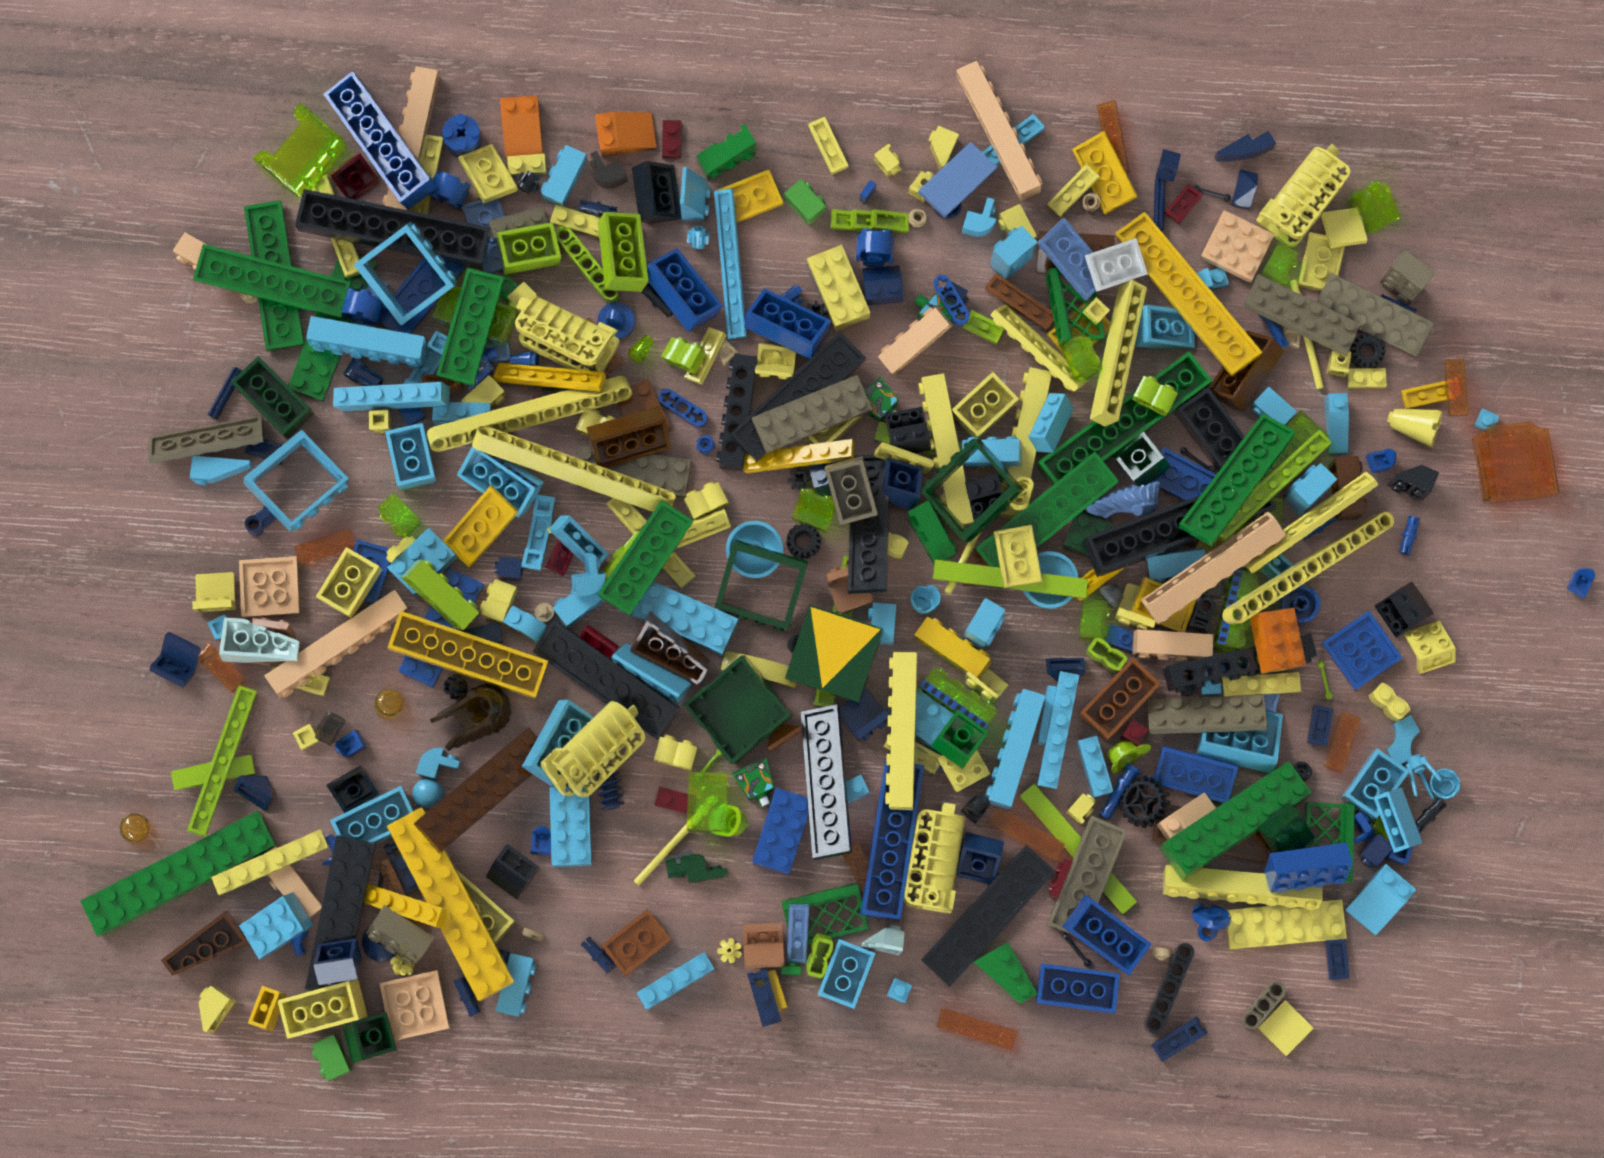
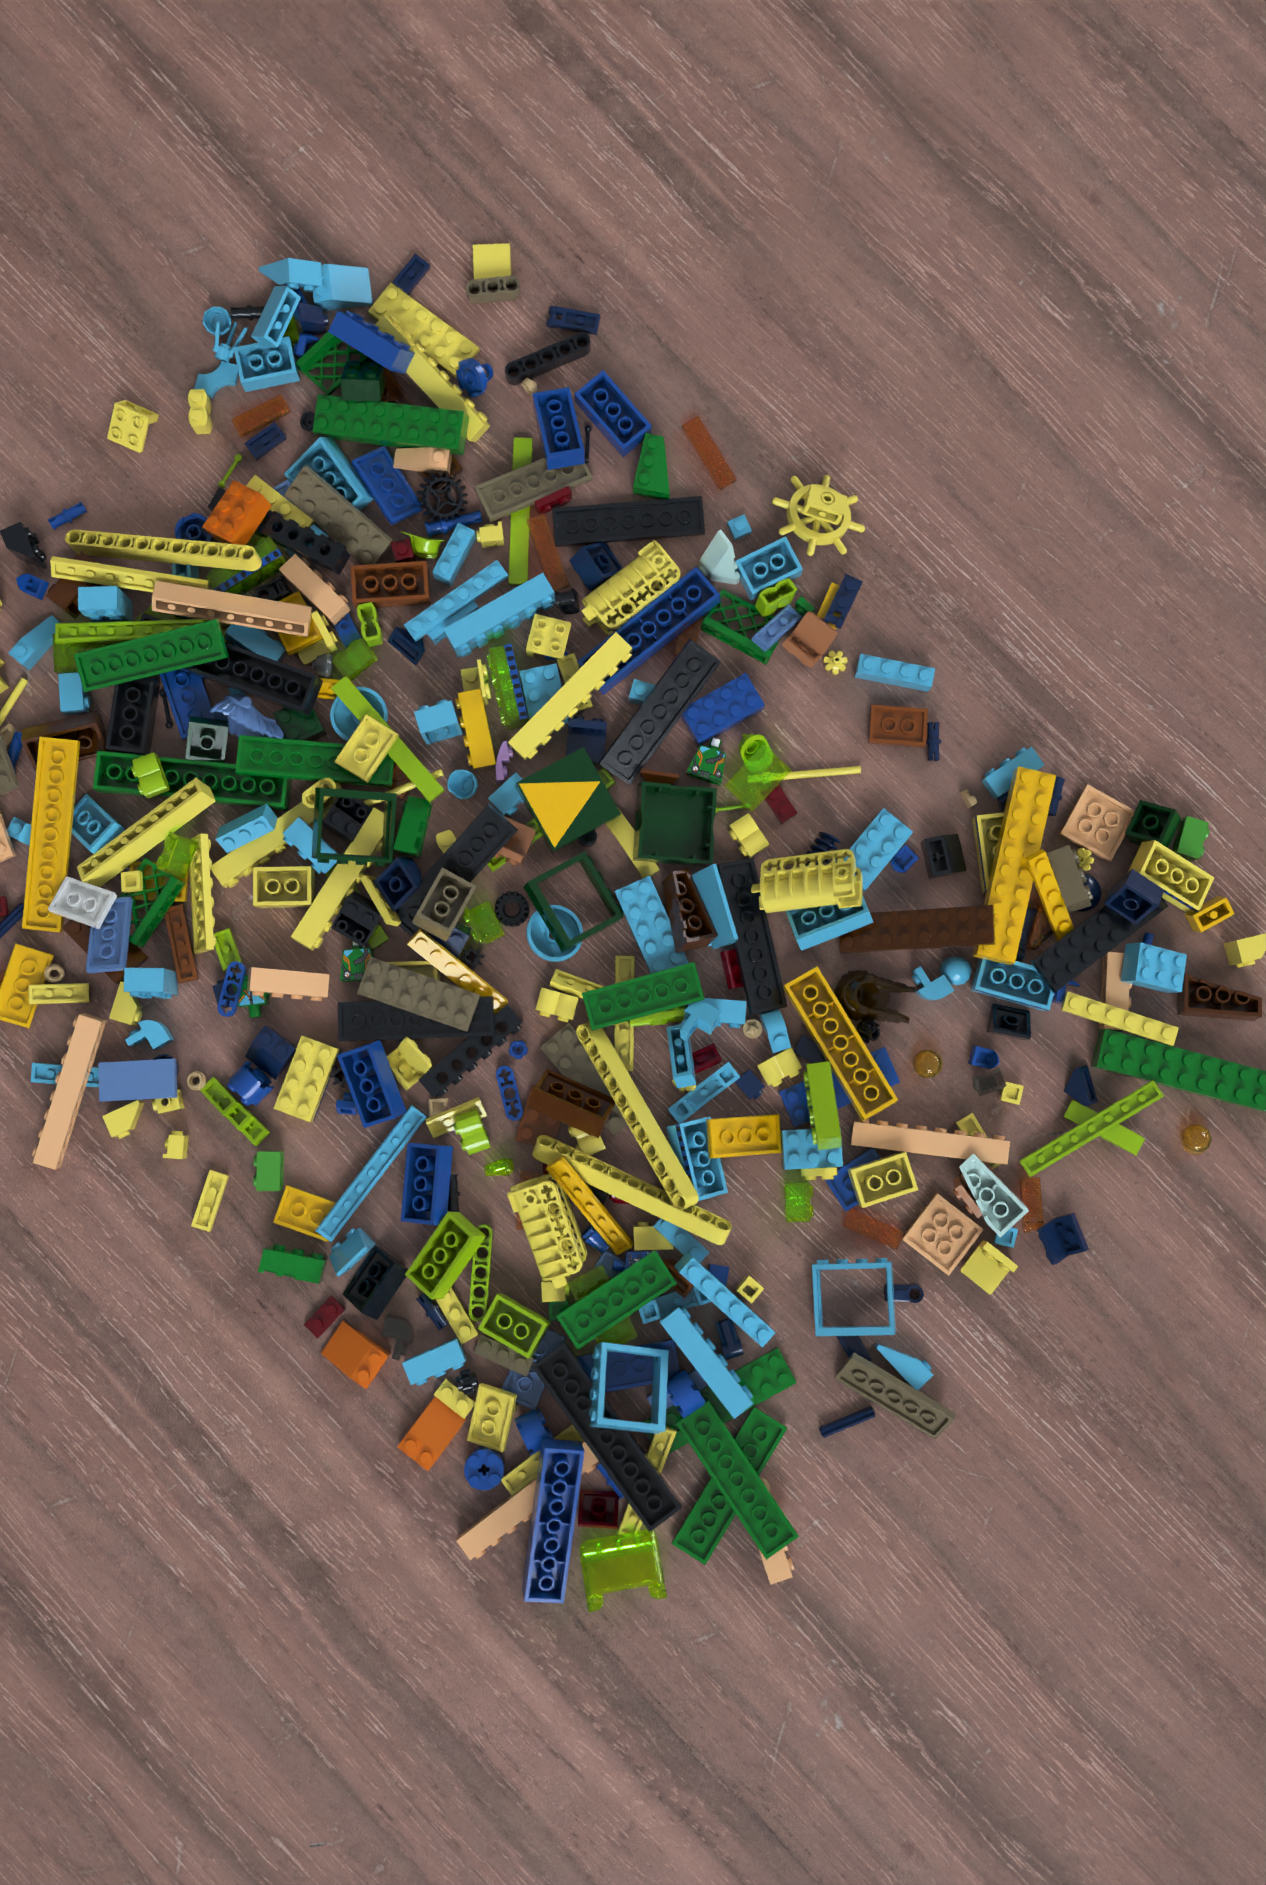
camera: 140 degrees left, 5 degrees up
(272, 397) = (815, 1383): dark green brick -> none
(411, 456) = (749, 1239): medium azure brick -> none
(618, 317) = (496, 1208): blue tile -> none
(694, 866) = (808, 741): dark green plate -> none
(698, 237) = (376, 1216): medium azure gear -> none
(847, 1055) = (822, 507): none -> light yellow piece
(867, 191) = (214, 1135): blue tile -> none
(914, 646) = (503, 757): none -> lavender slope
(959, 739) = (534, 652): green slope -> none
(1361, 650) = (183, 466): blue plate -> none
(1404, 609) = (124, 466): black slope -> none
(1418, 866) = (294, 273): none -> medium azure slope

